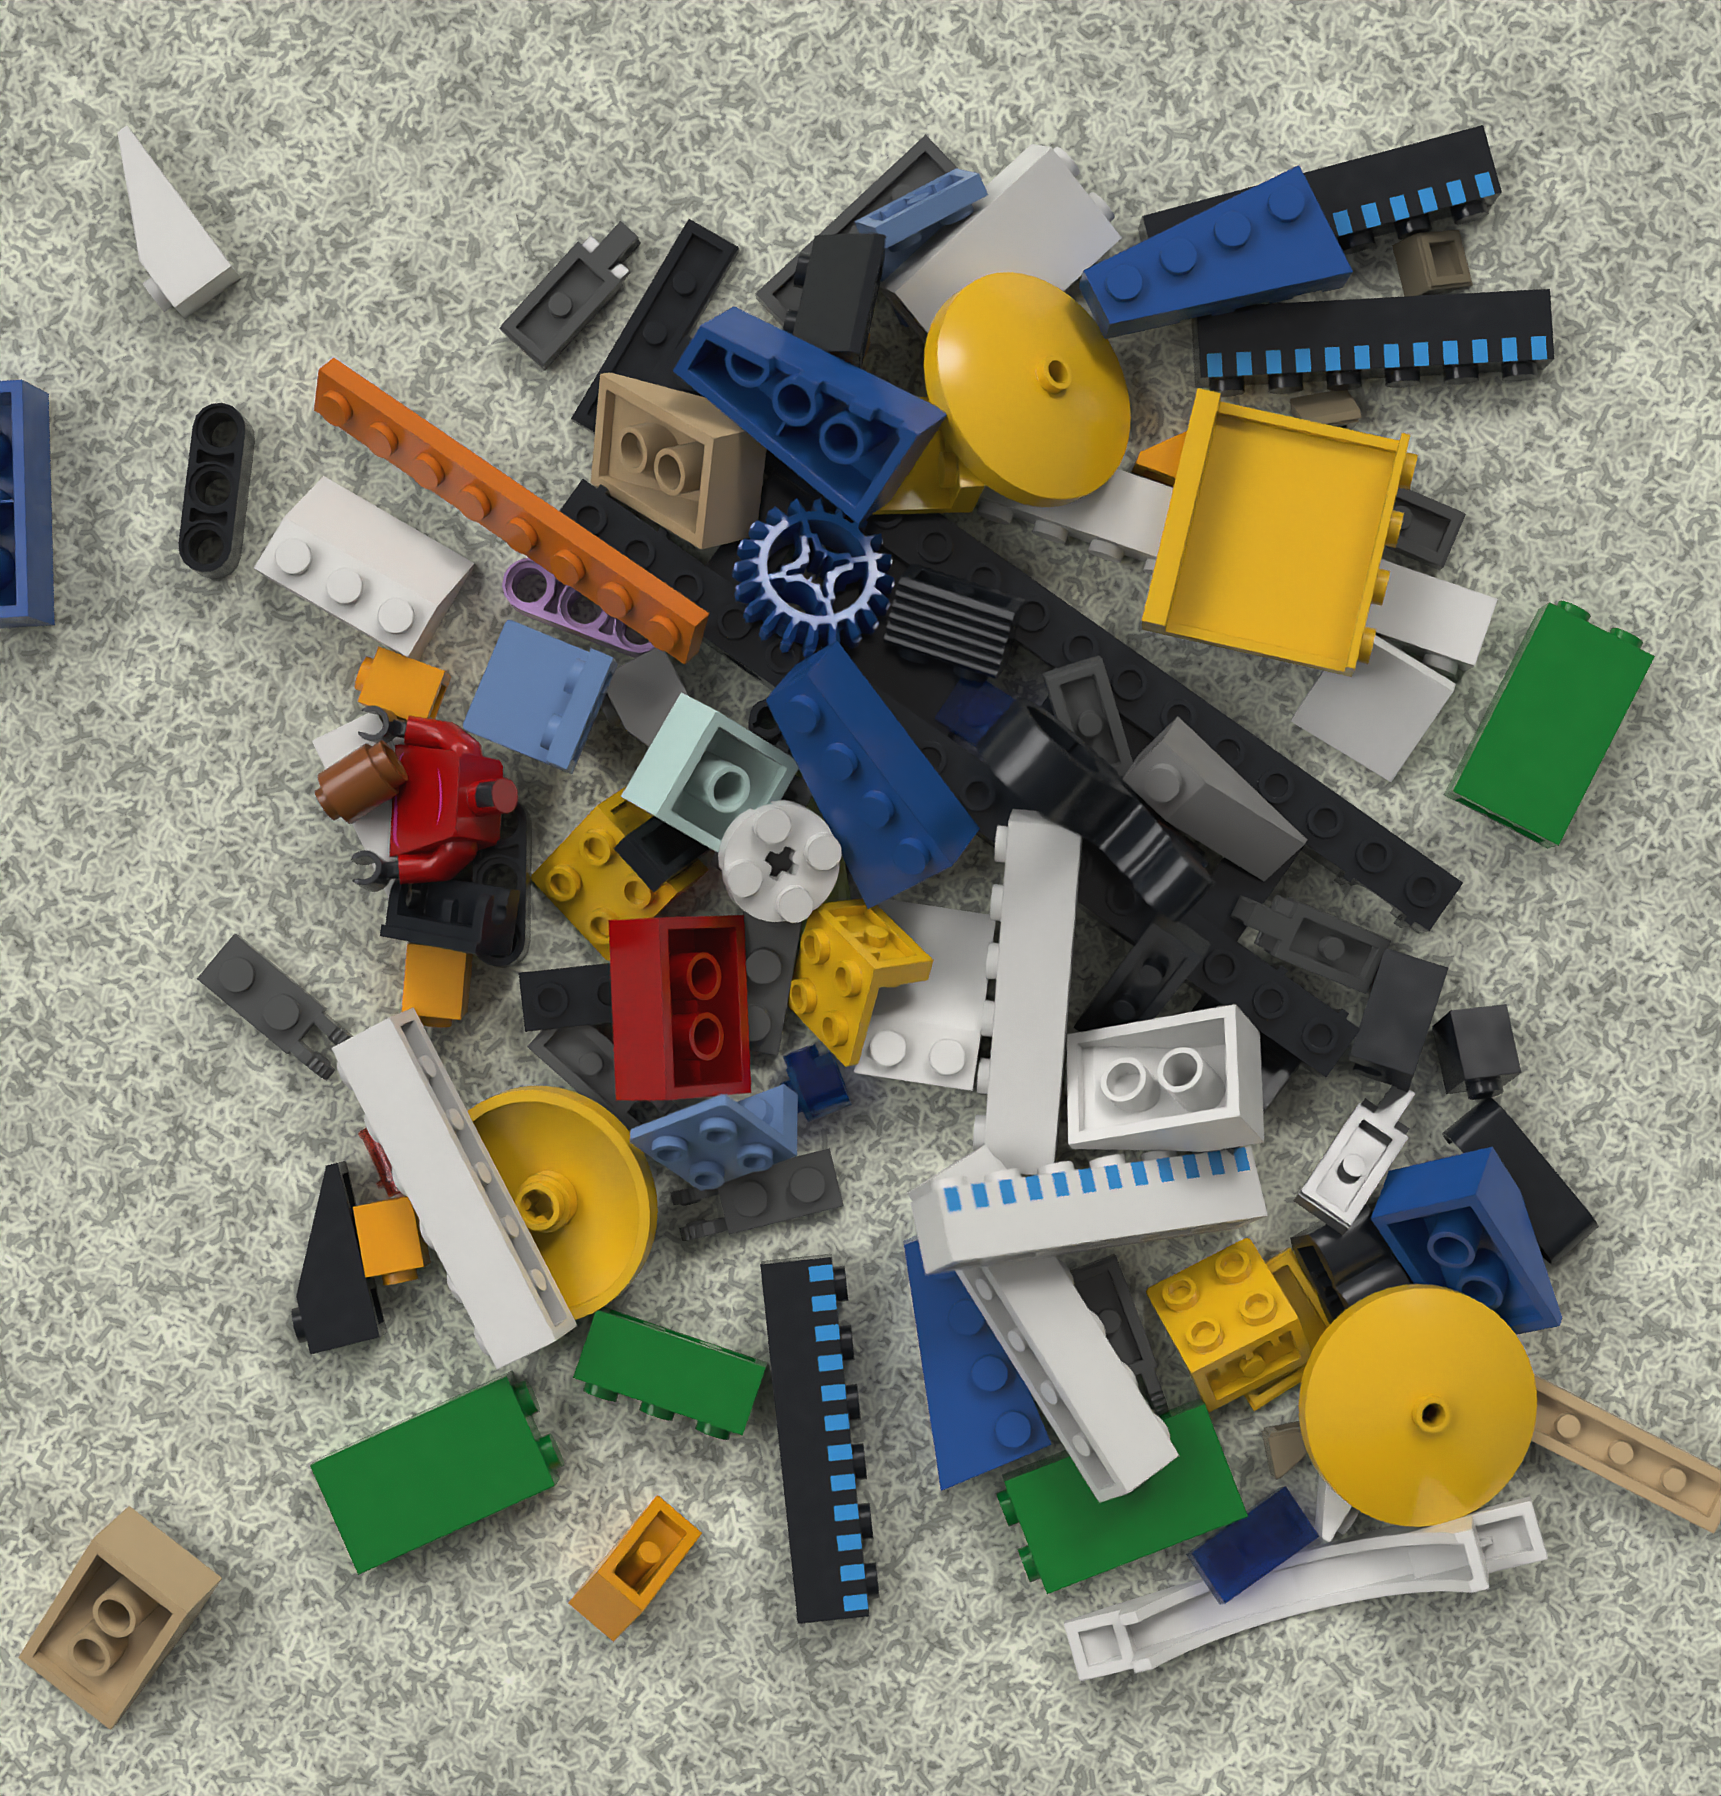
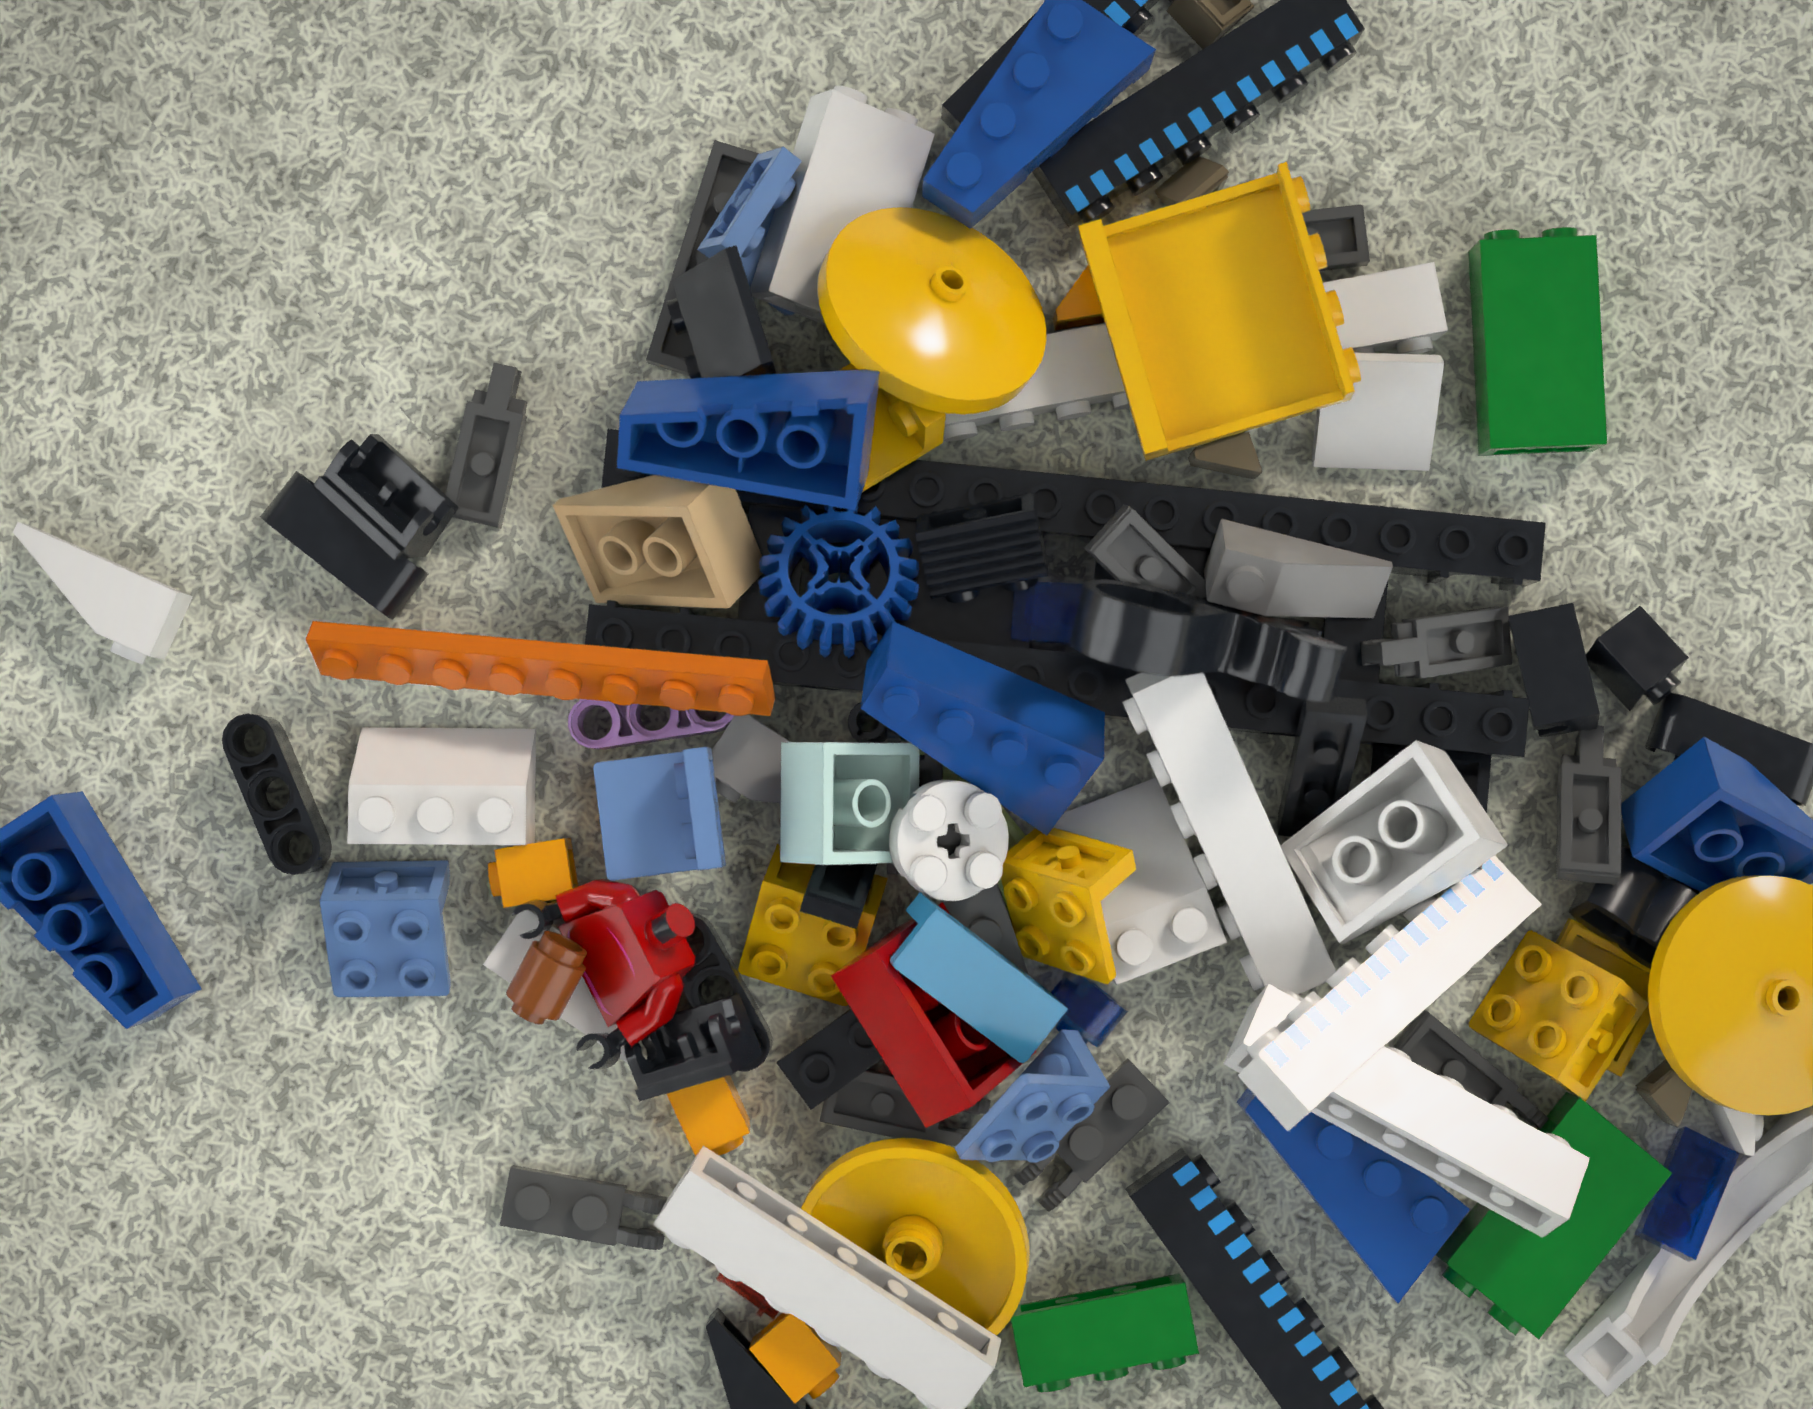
camera: 30 degrees left, 0 degrees up
(245, 664) = (386, 928): none -> medium blue bracket
(398, 307) = (341, 546): none -> black beam
(460, 286) = (387, 497): none -> black hinge
(665, 311) = (576, 420): black tile -> none
(732, 997) = (976, 981): none -> dark azure panel
(1219, 667) = (1228, 455): none -> dark tan slope

